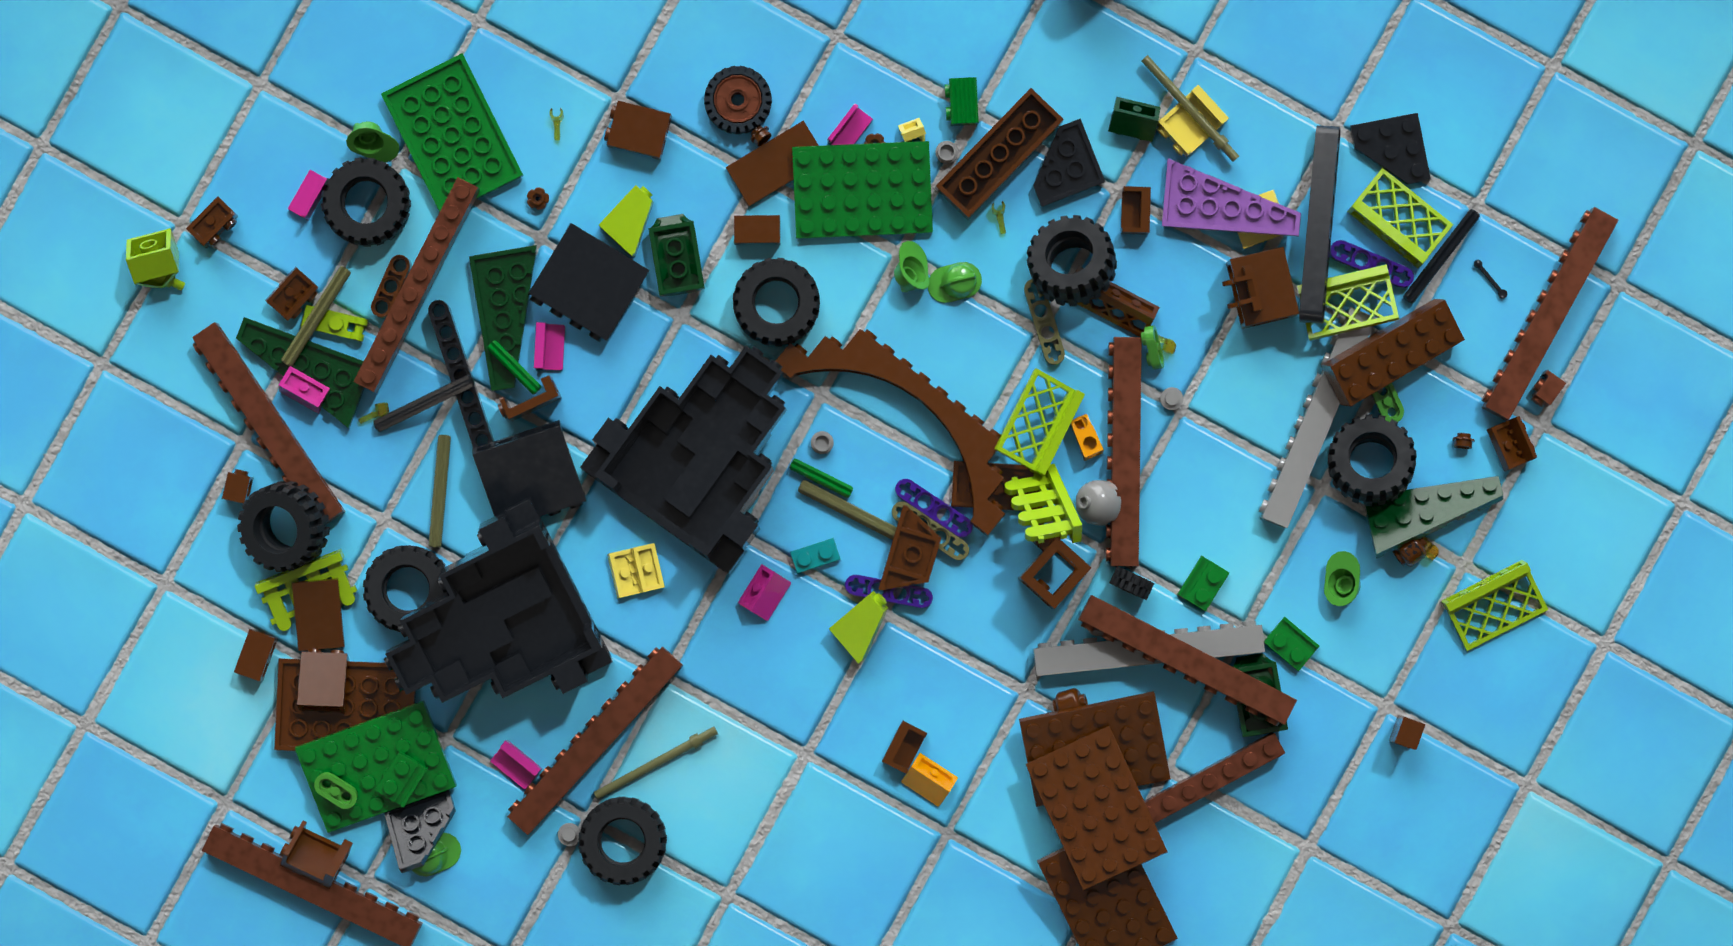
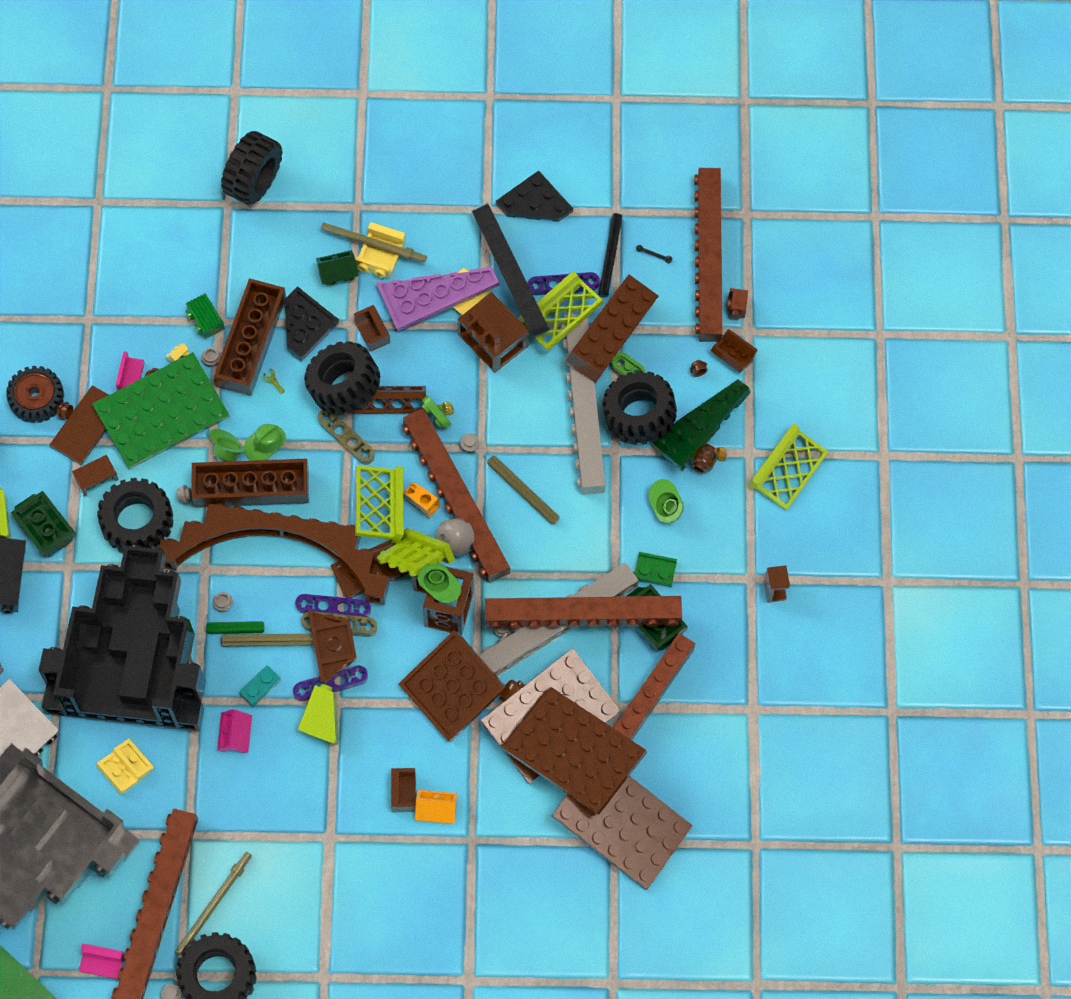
camera: 30 degrees left, 20 degrees down
(840, 300) = (184, 494): none -> light grey plate
(915, 326) = (250, 482): none -> reddish brown brick
(1011, 665) = (452, 685): none -> reddish brown plate
(1049, 564) = (439, 582): none -> bright green piece
(1131, 583) = (511, 581): black tyre -> none
(1200, 482) = (523, 490): none -> olive axle
(1203, 583) = (565, 559): green plate -> none
(1390, 234) = (564, 256): lime fence -> none

